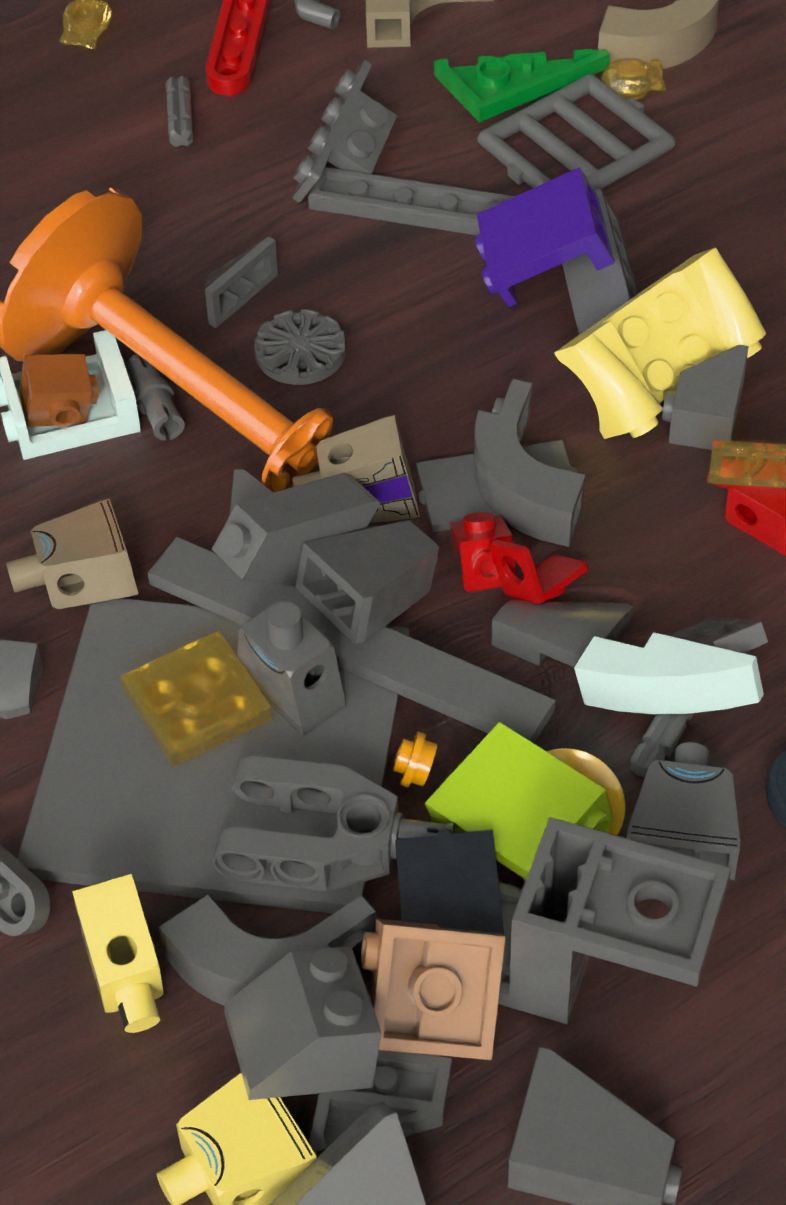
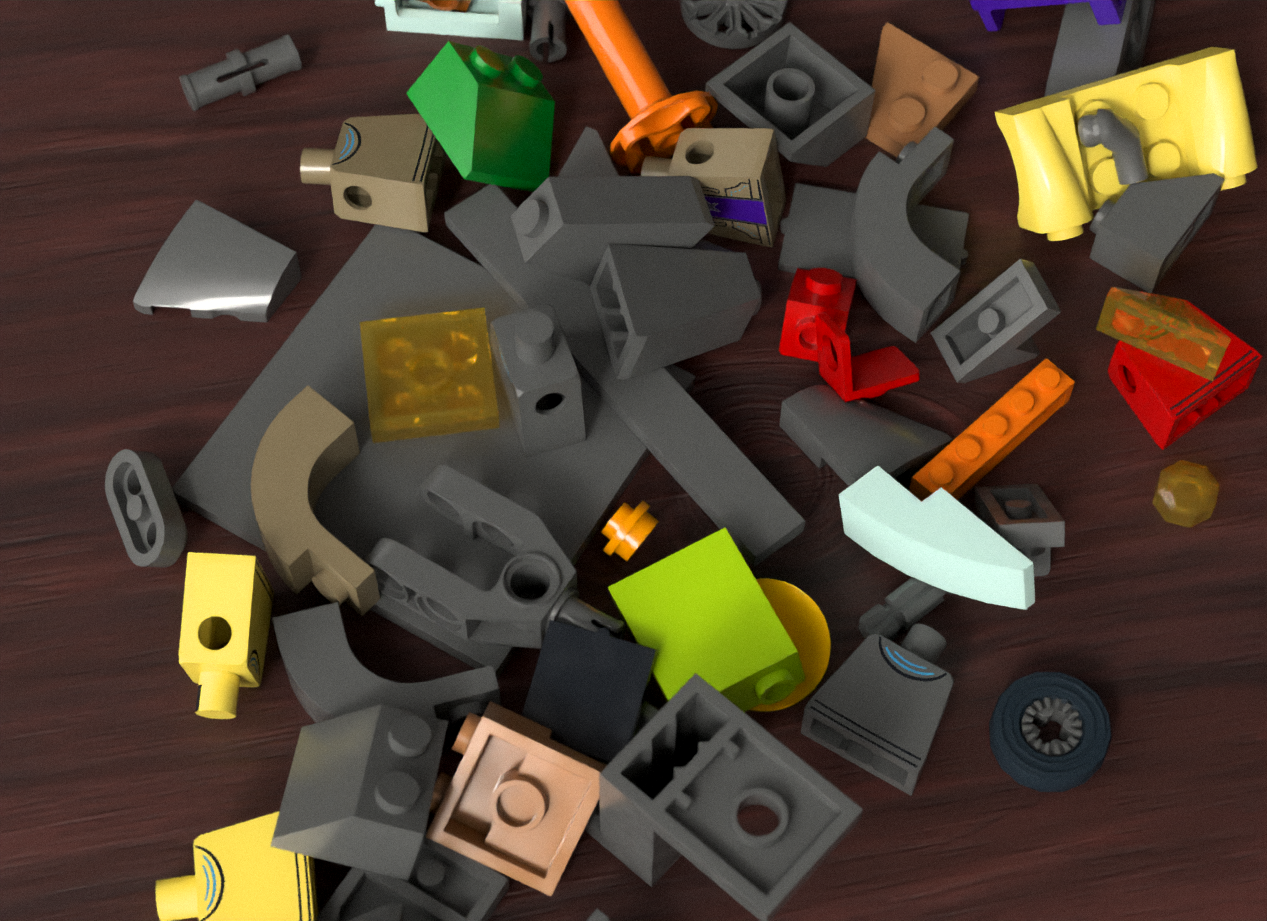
camera: 20 degrees right, 10 degrees up
(118, 799) = (290, 470): none -> dark tan arch
(150, 484) = (488, 115): none -> green slope
(397, 383) = (800, 93): none -> dark grey slope
(473, 367) = (914, 91): none -> medium nougat wing
(628, 508) = (997, 324): none -> dark grey slope
(662, 341) = (1119, 137): none -> dark grey arm
(667, 583) = (995, 433): none -> orange piece

